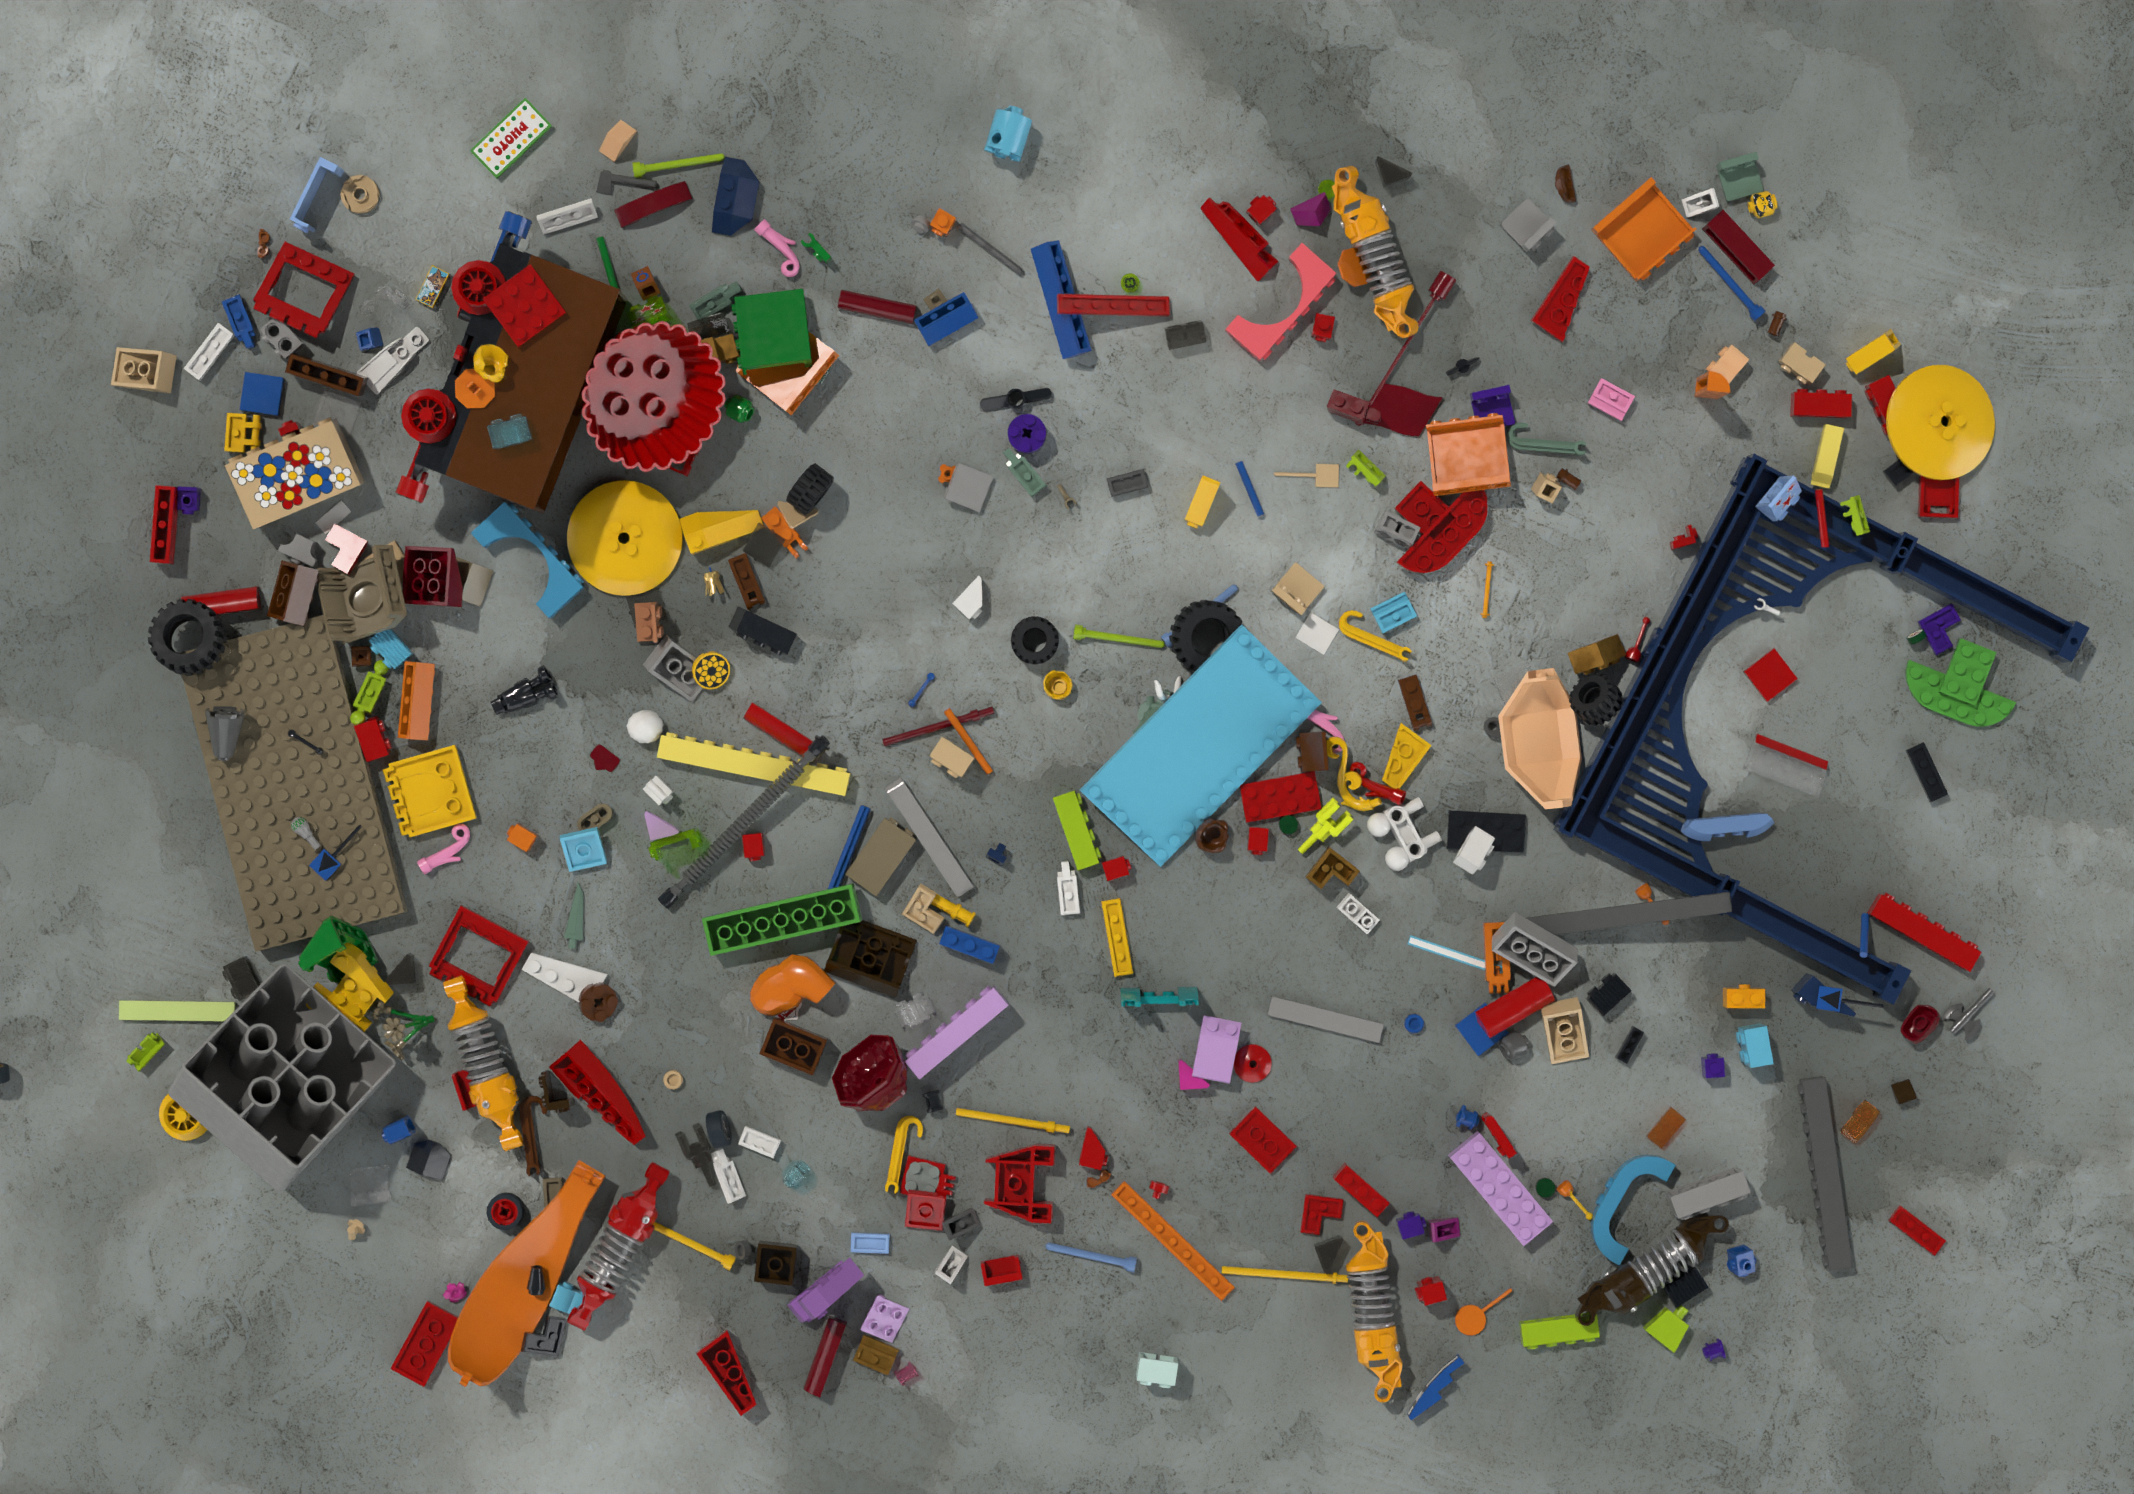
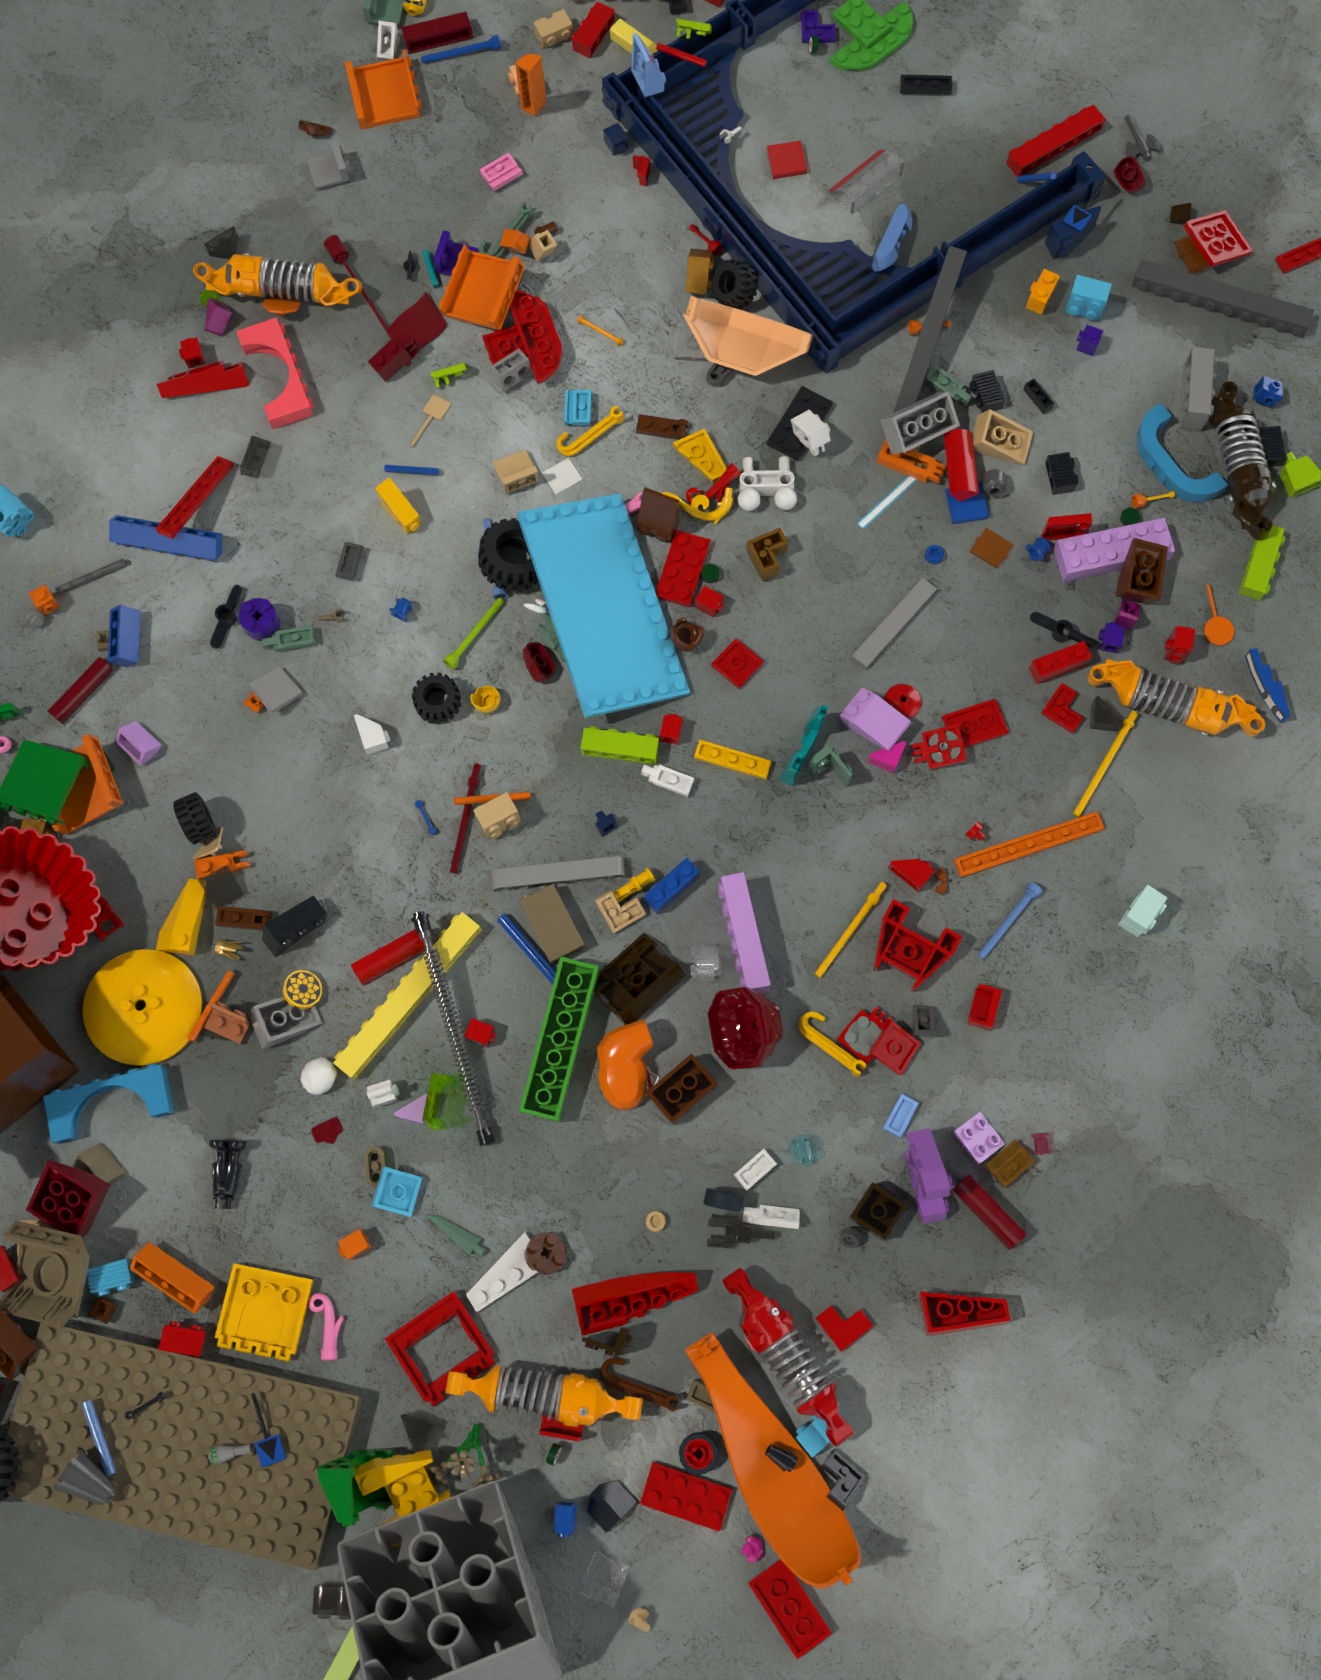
camera: 55 degrees left, 15 degrees down
(261, 719) = (98, 1438): none -> medium blue piece
(369, 693) = (139, 1319): lime plate -> none
(446, 1093) = (553, 1454): none -> dark green tile
(467, 1217) = (686, 1496): none -> red plate
(657, 597) = (207, 1011): none -> orange bar
(663, 1281) = (843, 1332): none -> red tile
(726, 1260) = (851, 1260): yellow piece -> none
(739, 408) = (92, 847): green head -> none
(855, 390) = (137, 742): none -> lavender brick
(932, 1101) = (797, 990): black bush -> none
(951, 1264) = (957, 1050): white slope -> none
(1105, 558) = (401, 609): none -> blue brick
(1117, 714) = (538, 662): none -> dark red piece
(1130, 283) = (187, 480): clear neon green tile -> none
(1150, 1019) = (831, 758): none -> sand green bracket
(1211, 895) = (737, 663): none -> red tile
(1222, 1120) = (940, 747): none -> red piece
(1323, 327) = (315, 353): red bracket -> none
(1327, 825) = (727, 540): neon yellow plant -> none
(1358, 913) = (817, 554): white slope -> none
(1395, 1189) = (1051, 624): none -> black piece
(1448, 1073) = (991, 548): none -> clear orange piece
(1470, 388) = (429, 264): none -> teal piece
(1486, 1226) = (1142, 572): none -> reddish brown slope
(1536, 458) = (514, 241): none -> orange brick
(1557, 308) = (401, 171): red wing -> none
(1557, 1103) = (1061, 473): none -> black brick
(1596, 953) = (944, 382): none -> sand green hinge
(1666, 1127) = (1123, 401): clear orange plate -> none
(1704, 495) = (616, 139): none -> dark blue brick
(1776, 324) = (509, 30): reddish brown pin -> none
(1888, 1141) = (1217, 238): none -> red plate

